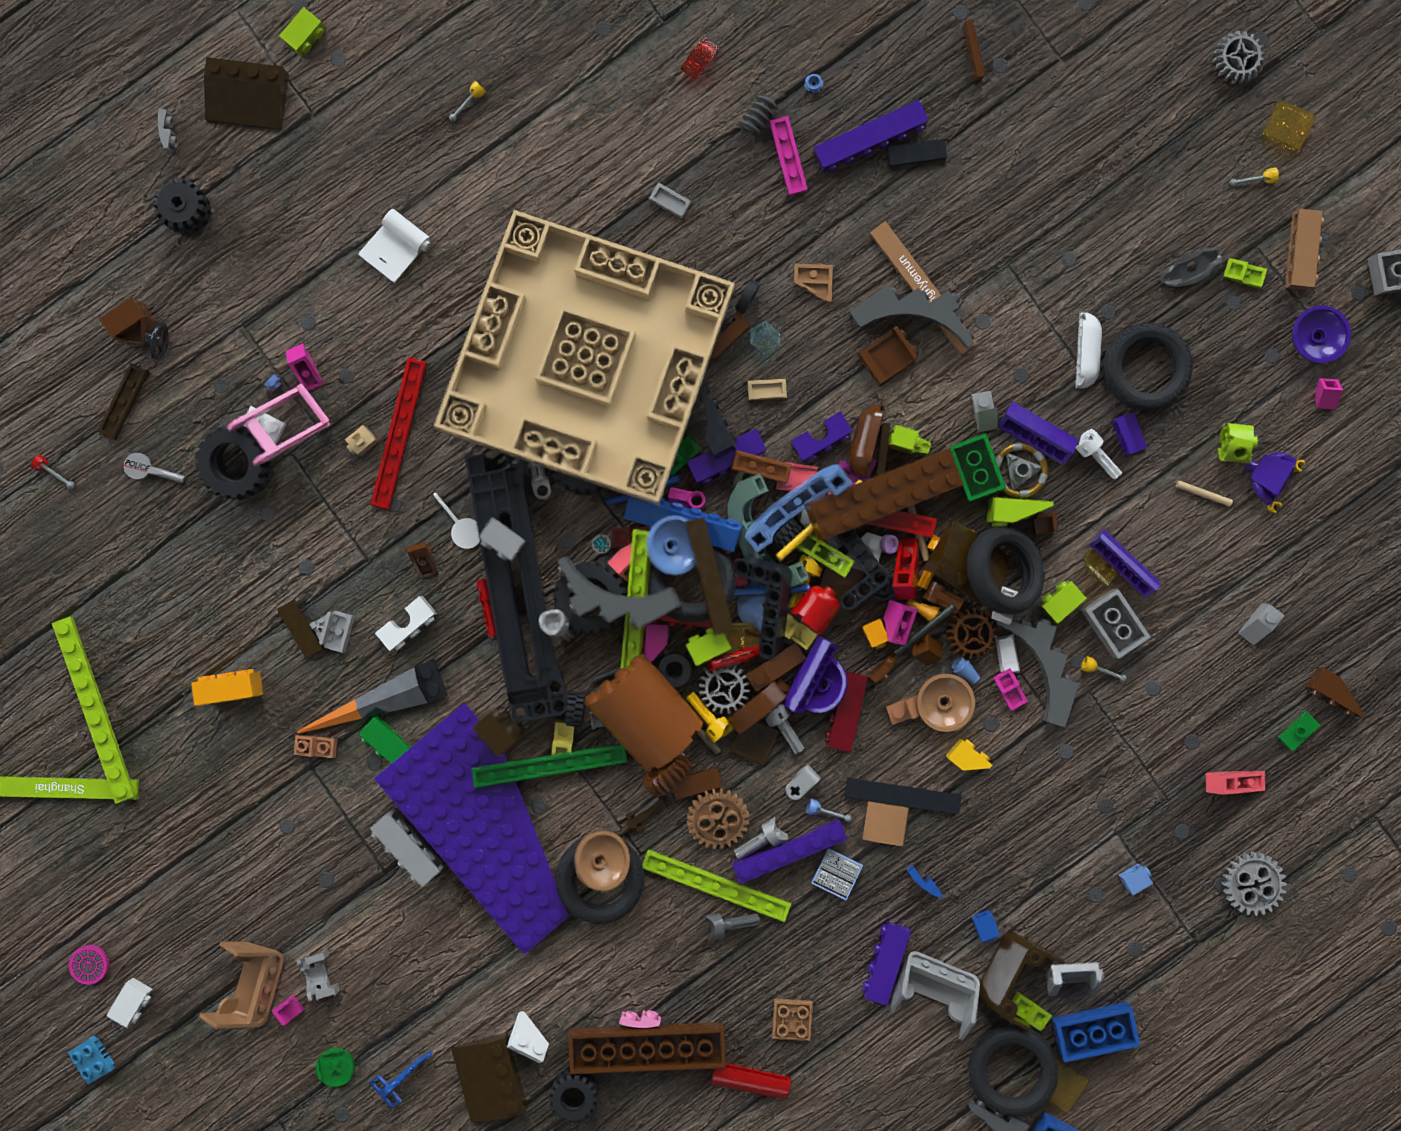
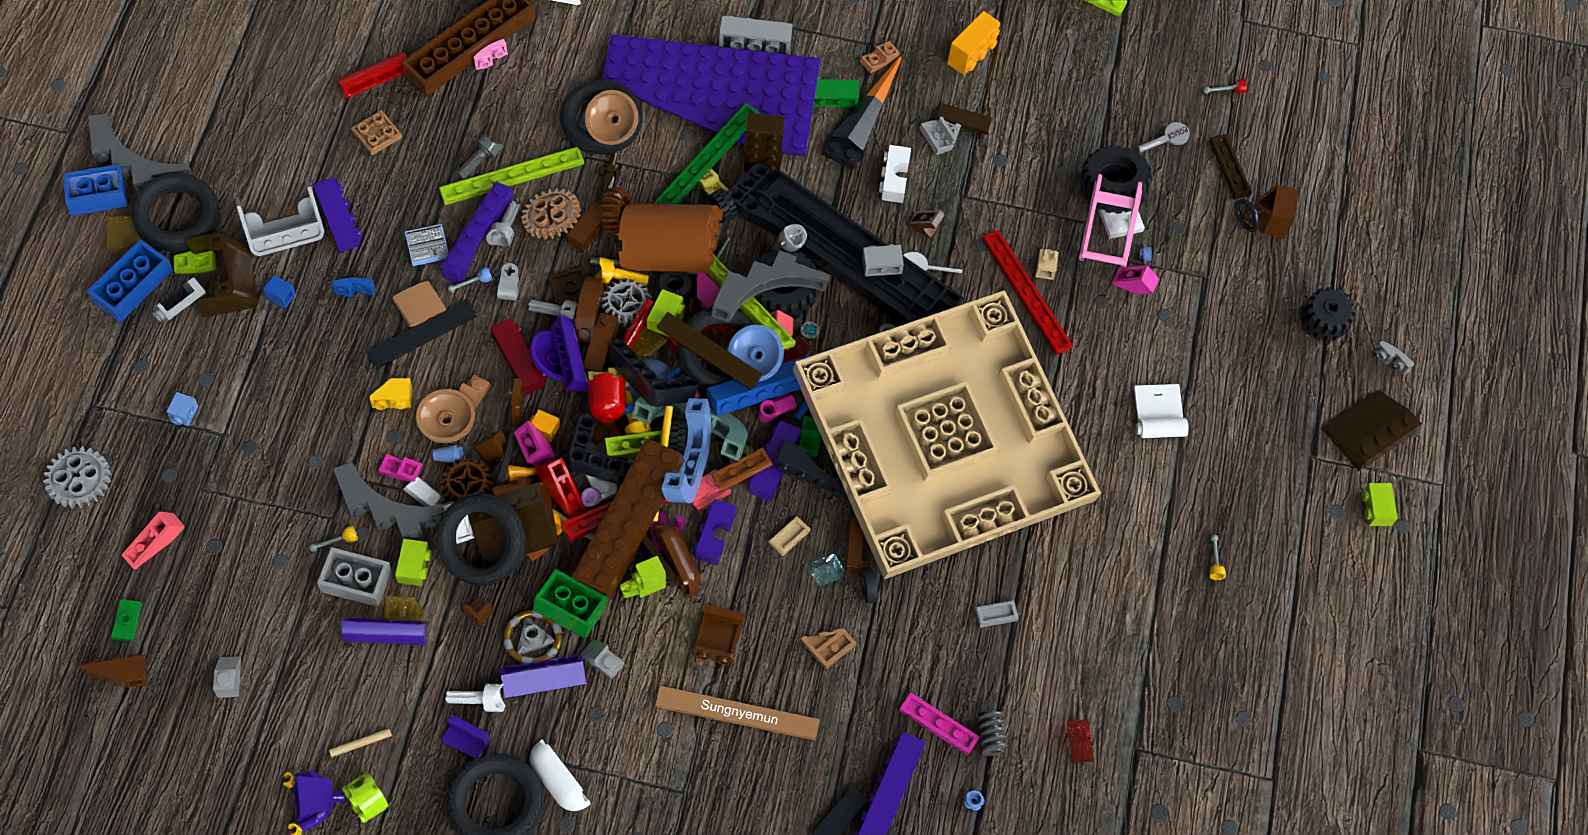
camera: 130 degrees right, 25 degrees down
(916, 304) = (731, 688): dark grey arch -> none
(1005, 511) = (514, 593): lime slope -> none

